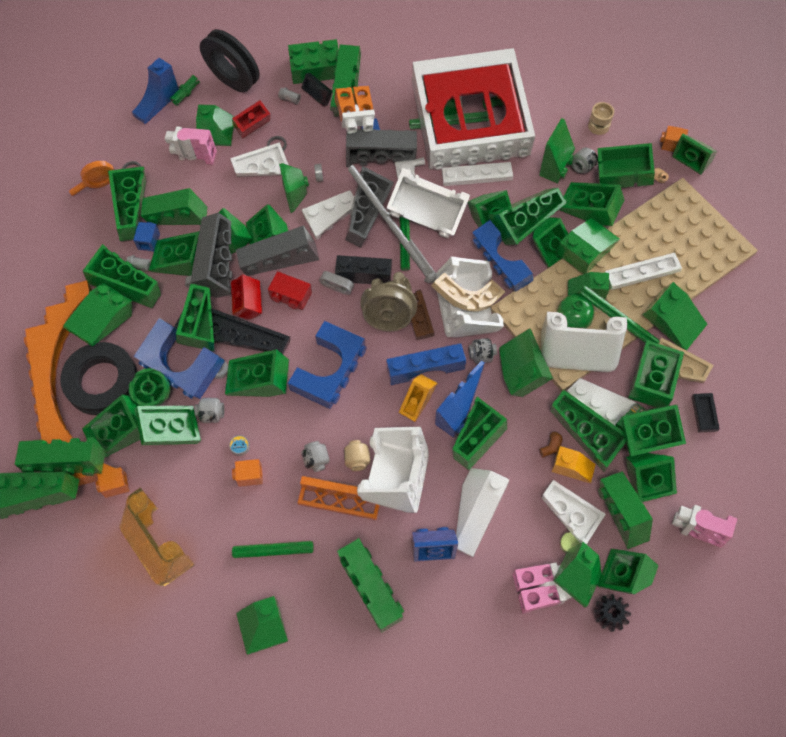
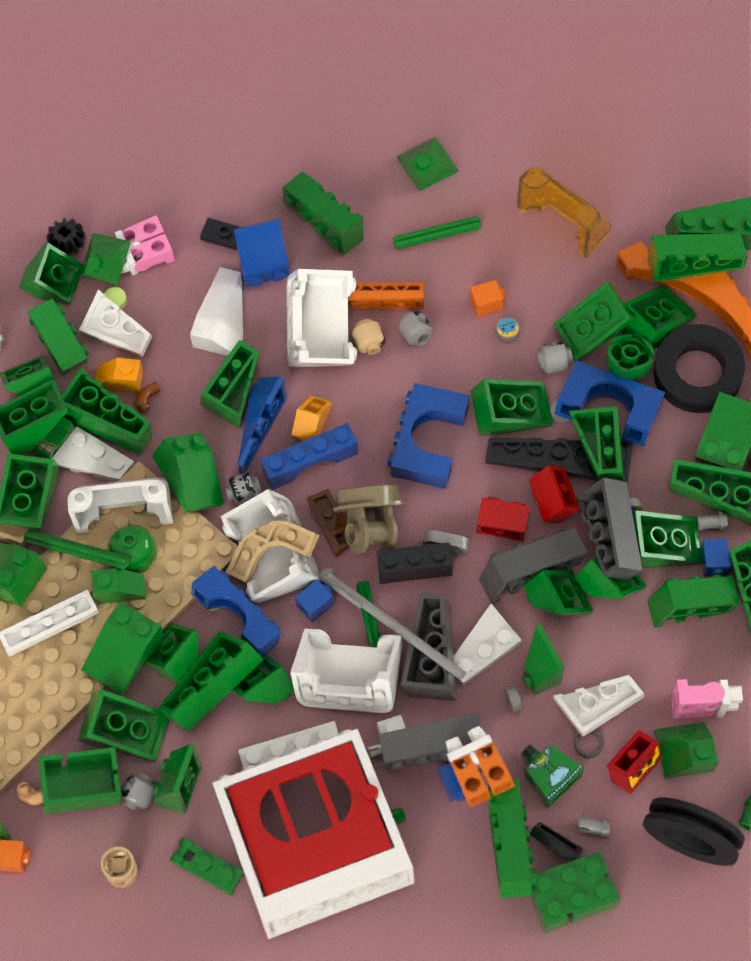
camera: 170 degrees right, 0 degrees up
(307, 126) = (550, 772): none -> green torso
(440, 256) = (315, 600): none -> blue brick
(463, 588) = (219, 233): none -> black plate
(543, 116) = (207, 867): none -> green plate

